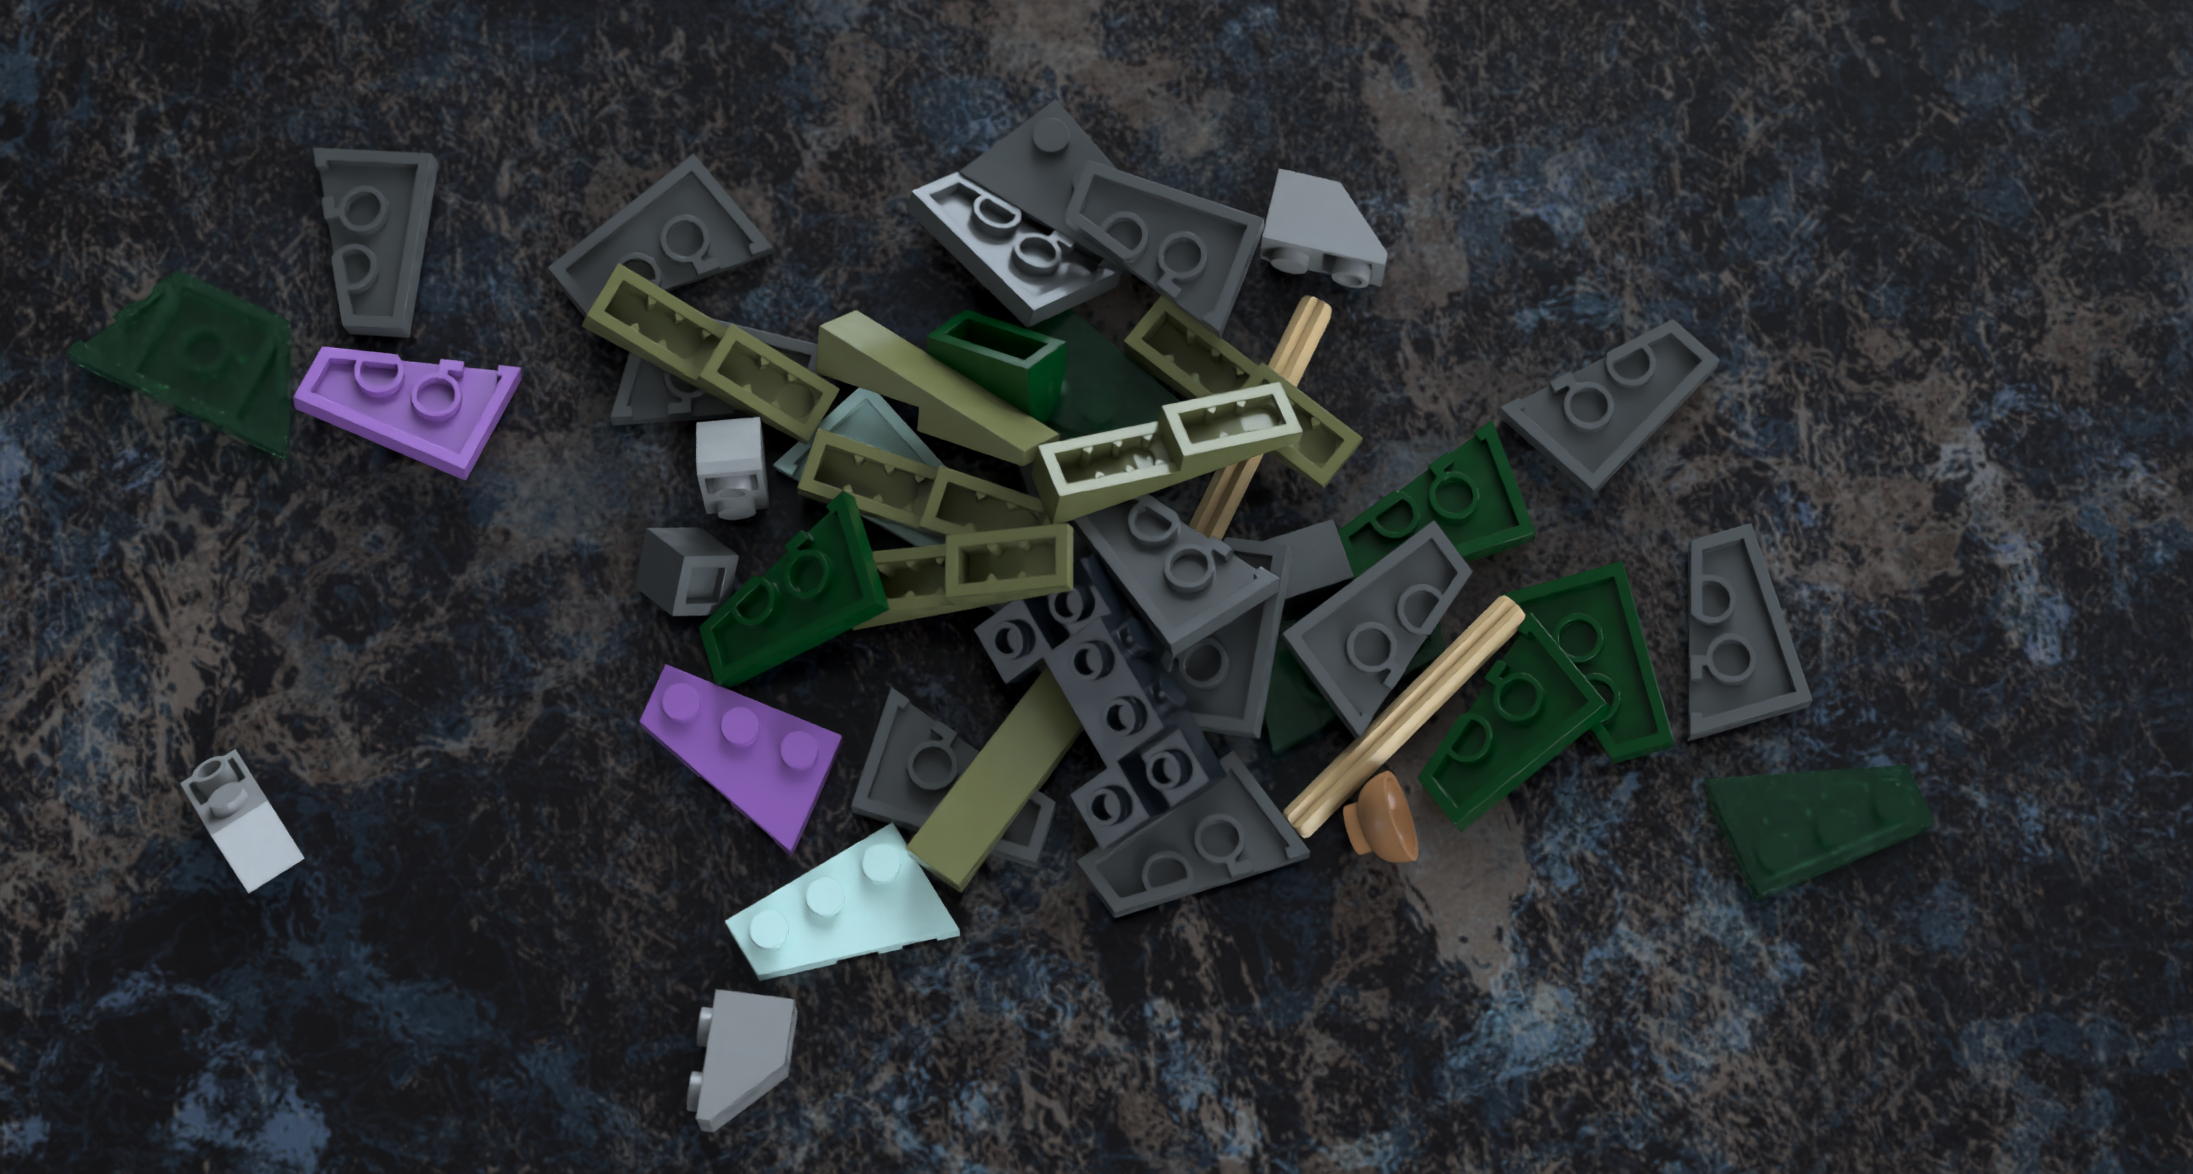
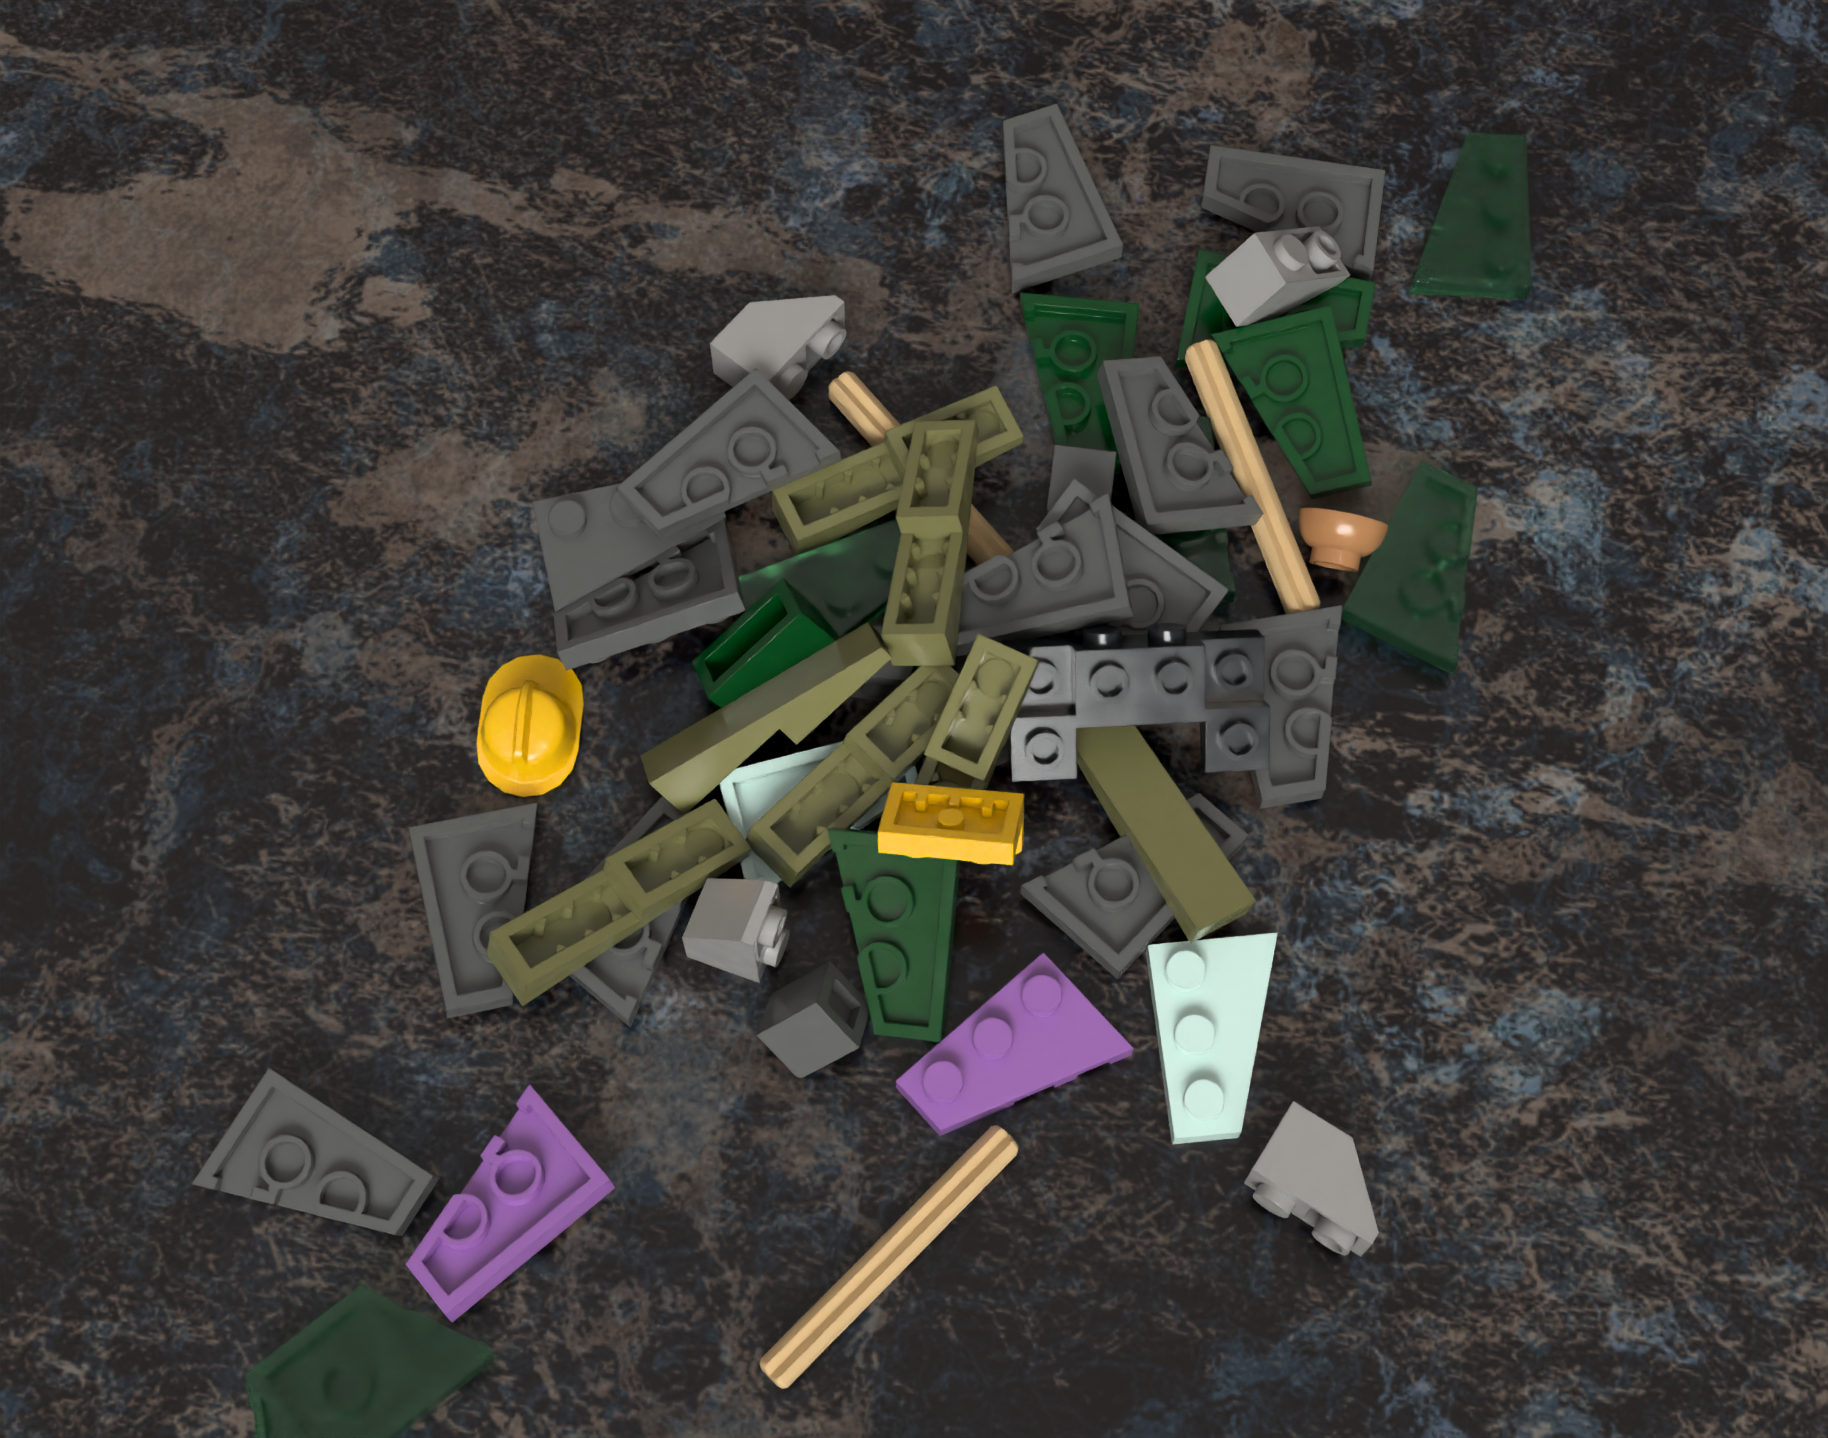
camera: 65 degrees left, 5 degrees down
(514, 731) = (888, 1257): none -> tan axle
(846, 206) = (530, 725): none -> yellow piece
(886, 588) = (952, 823): none -> yellow bracket
(1385, 911) = (1418, 573): none -> clear green wing
(1620, 641) = (1276, 273): none -> light grey slope

